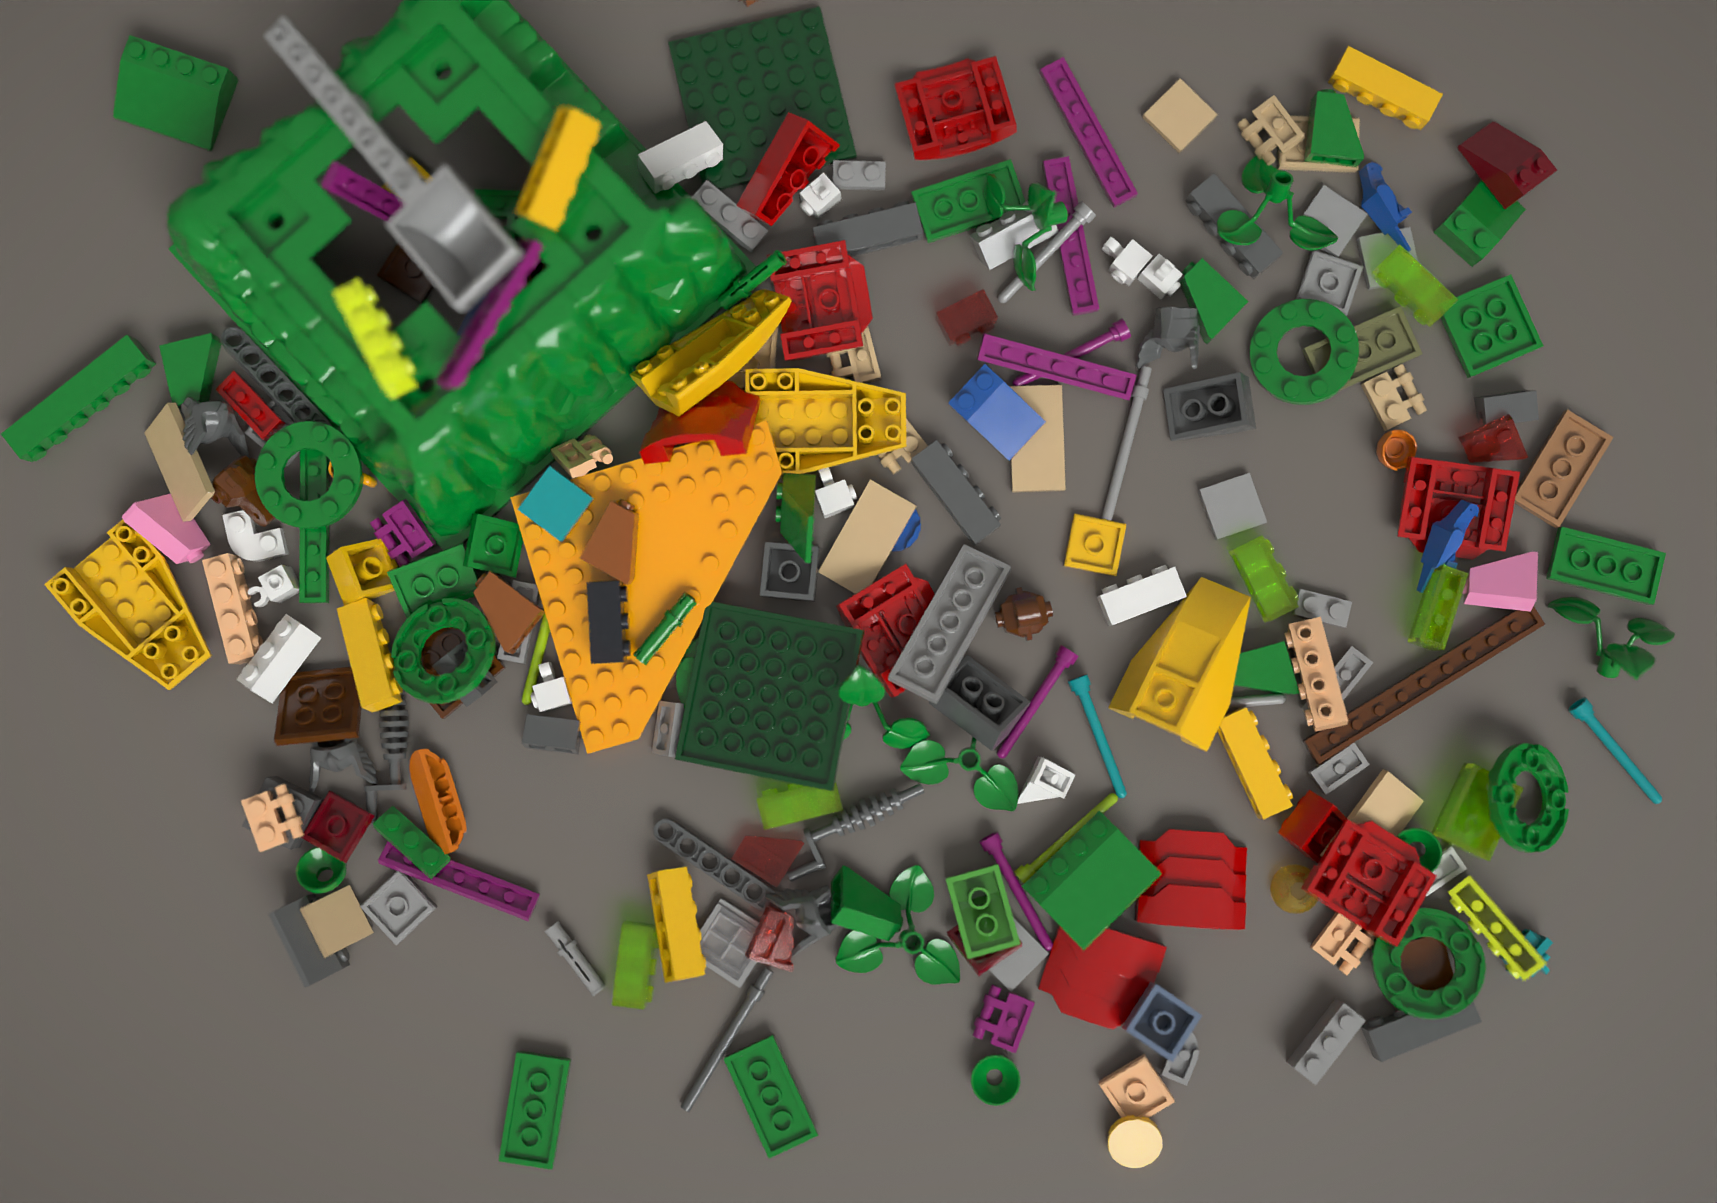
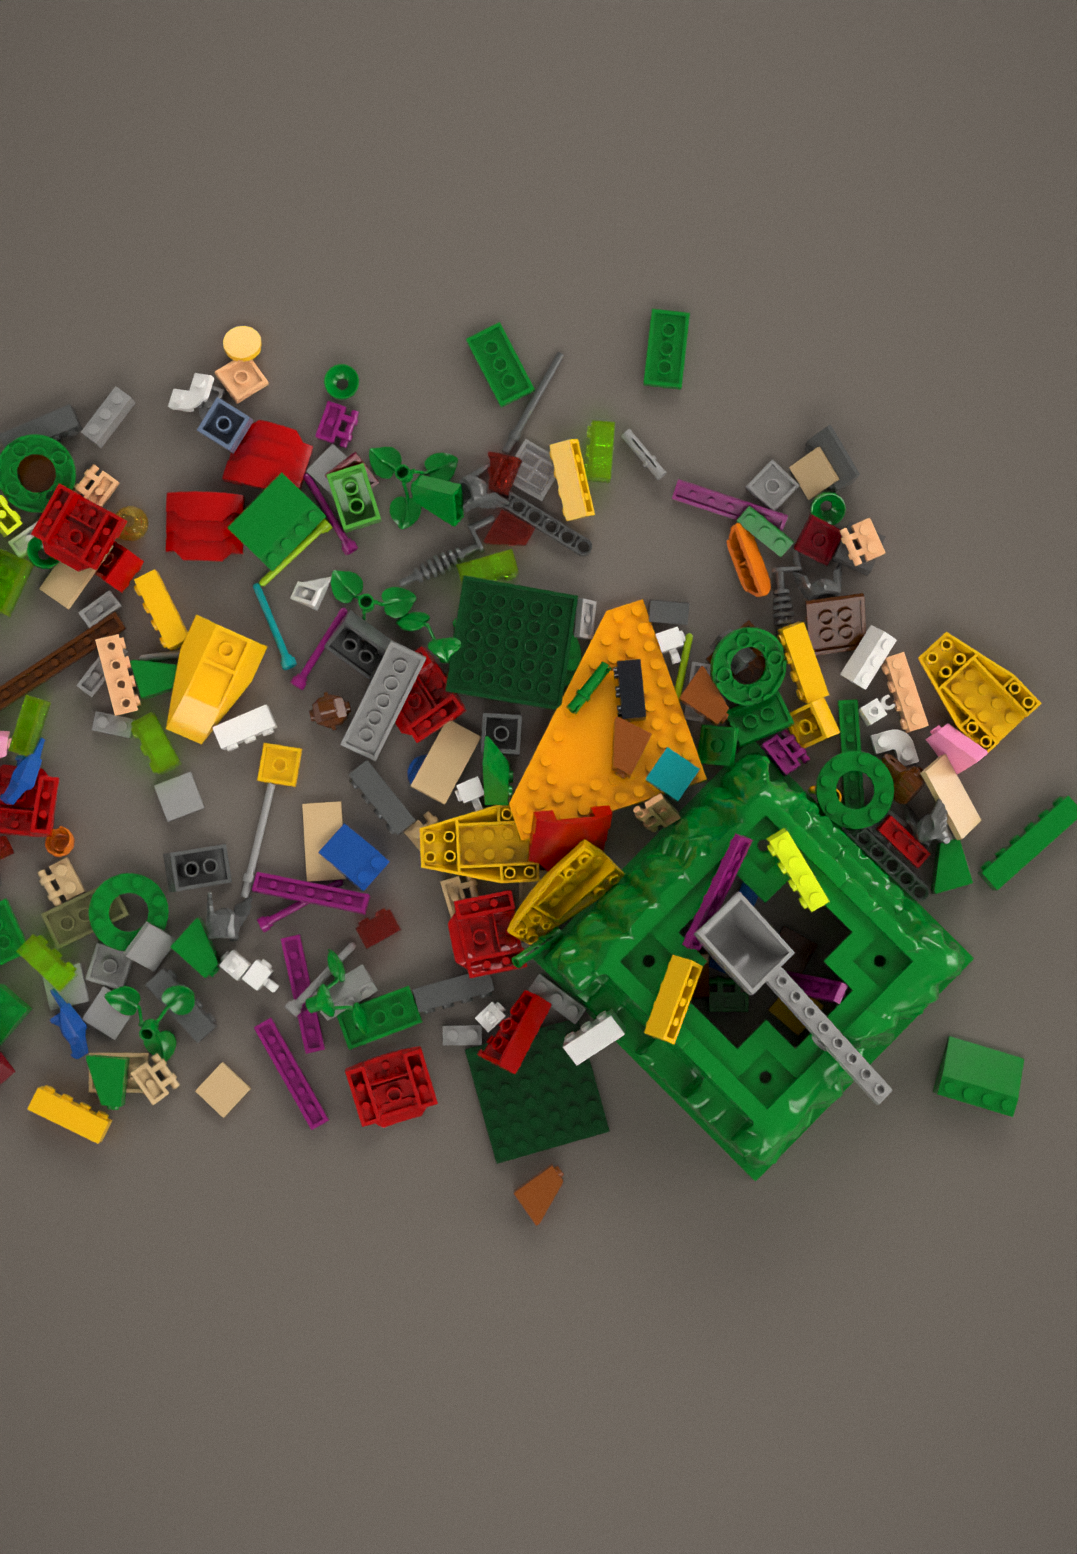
camera: 170 degrees right, 0 degrees up
(1198, 1070) = (199, 392): none -> white plate
(1275, 303) = (150, 946): none -> light grey tile

